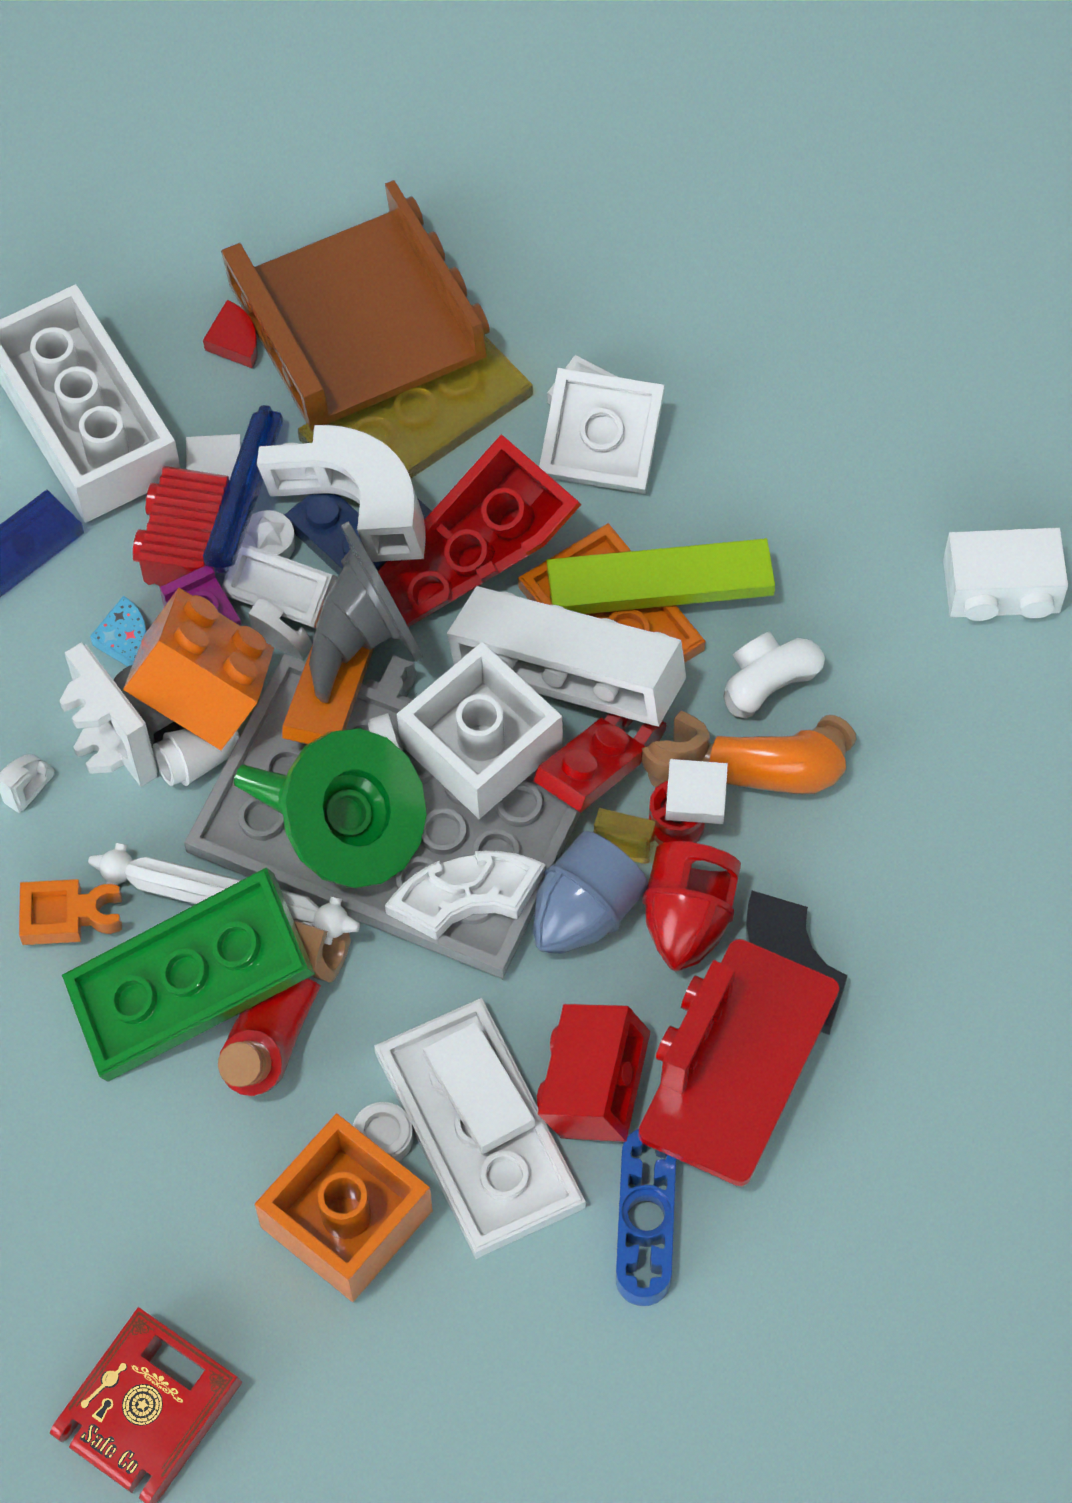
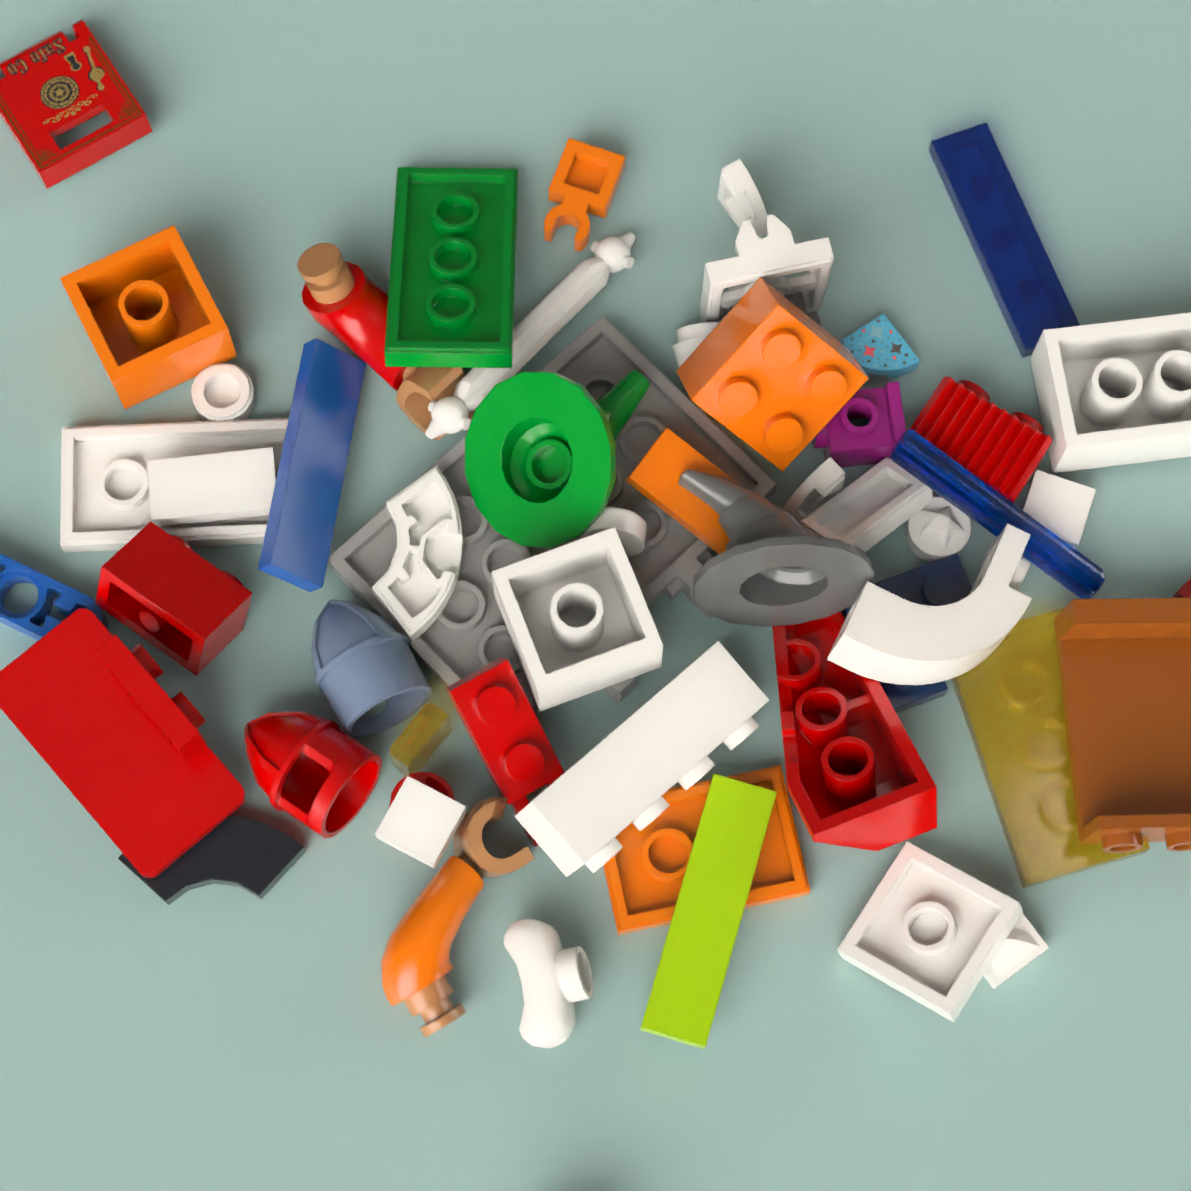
camera: 110 degrees right, 10 degrees up
(421, 1014) = (312, 466): none -> blue tile

